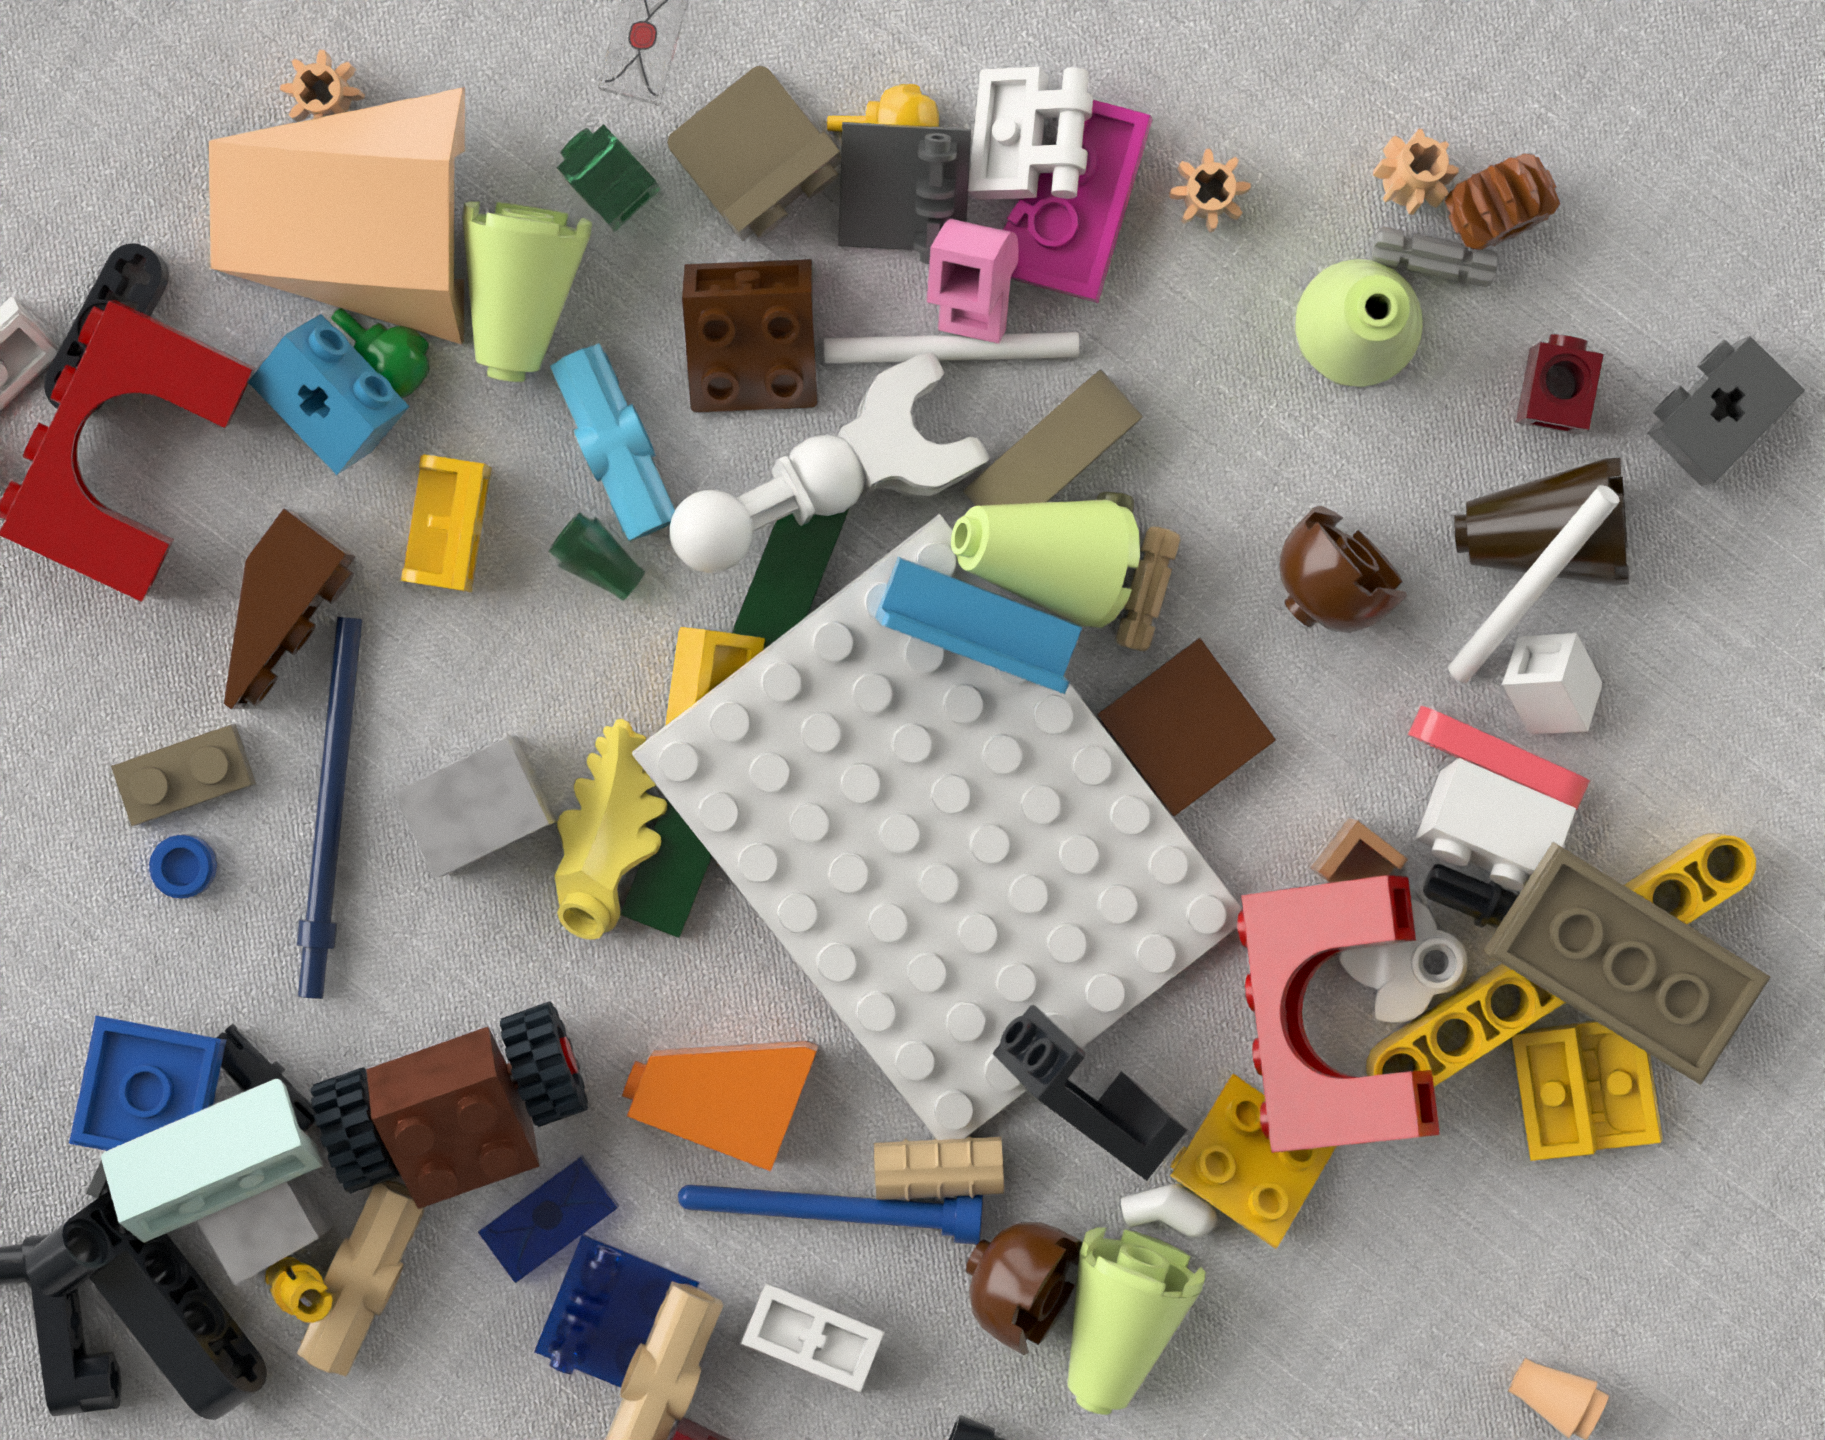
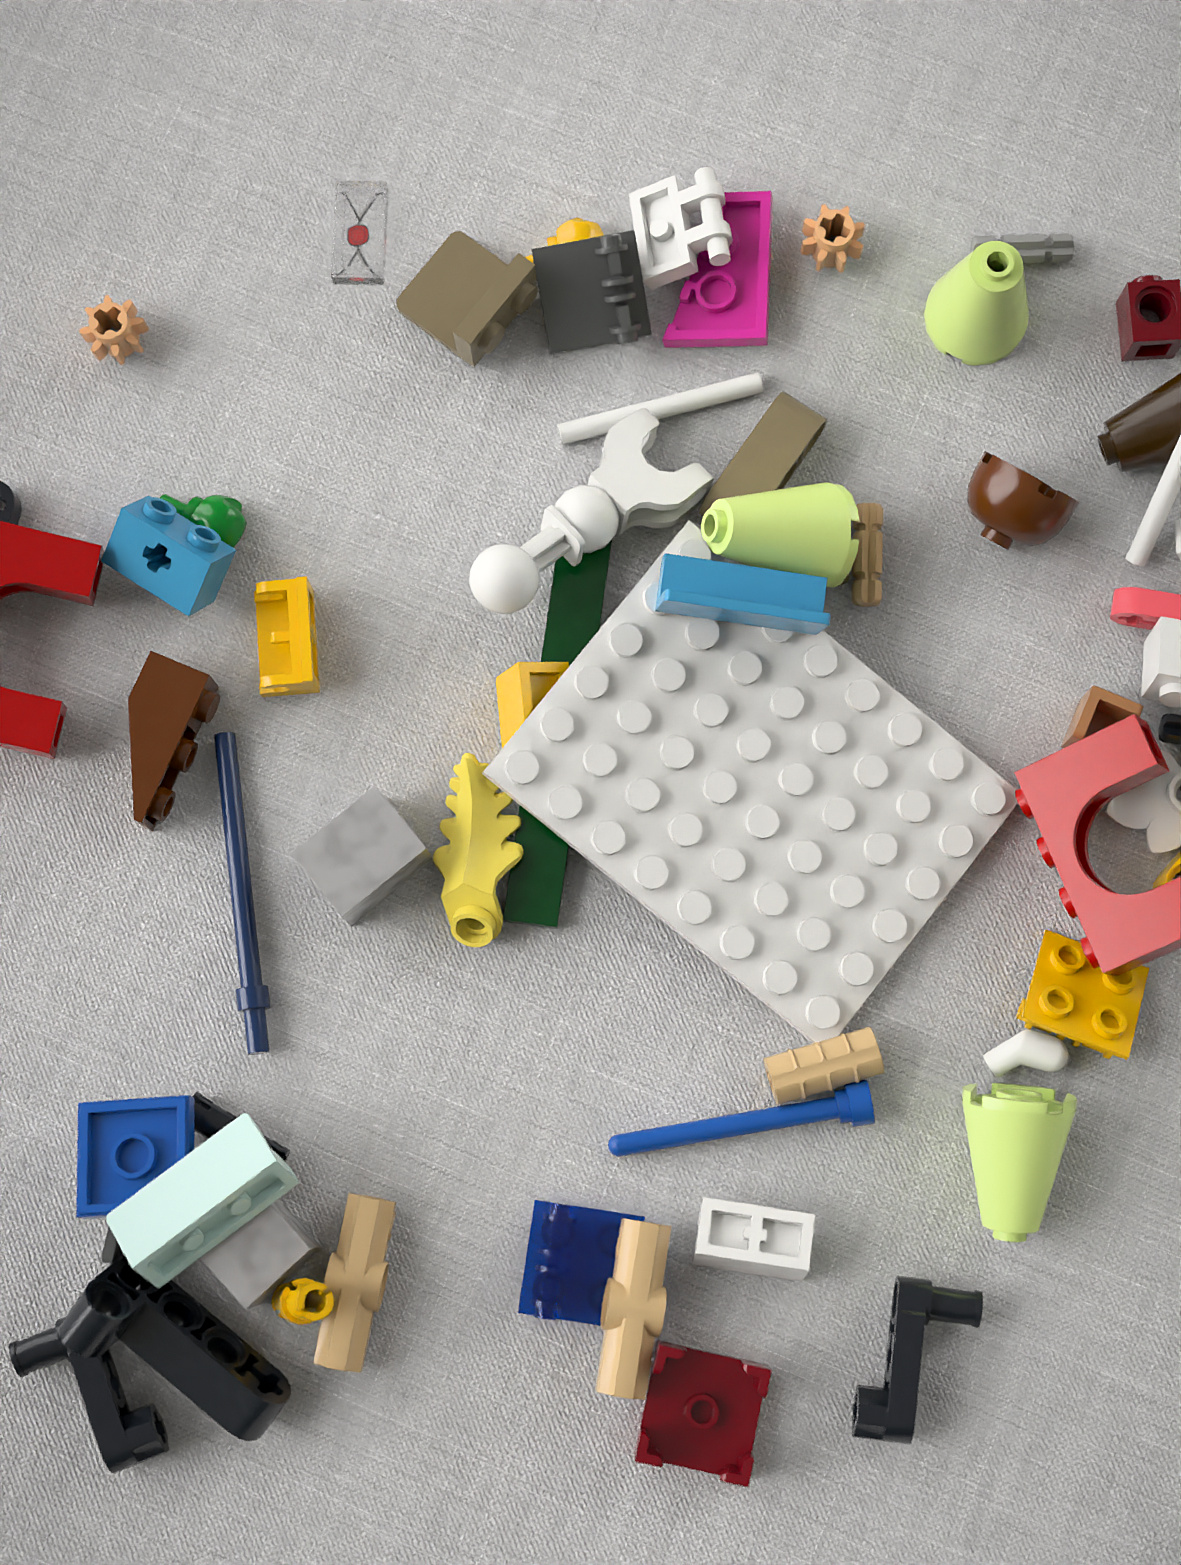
camera: 10 degrees left, 10 degrees down
(183, 775) = (113, 895): dark tan plate -> none
(183, 866) = (128, 970): blue tile -> none
(348, 210) = (154, 413): light nougat wedge -> none
(452, 1110) = (398, 1112): copper brick -> none
(518, 282) = (302, 431): yellowish green cone -> none
(548, 1218) = (502, 1194): clear blue tile -> none
(595, 555) = (414, 635): clear green cone -> none
(606, 175) = (355, 340): clear green brick -> none
(614, 441) = (408, 541): medium azure piece -> none
(723, 1095) = (626, 1048): orange slope -> none
(750, 335) = (499, 437): reddish brown bracket -> none
(972, 279) = (664, 340): bright pink brick -> none
(1021, 1282) = (920, 1143): reddish brown cylinder -> none
(1124, 1118) = (969, 981): black panel -> none
(1186, 727) = (931, 651): reddish brown tile -> none
(1425, 157) = (989, 185): light nougat gear -> none
(1502, 201) = (1064, 187): dark orange gear -> none

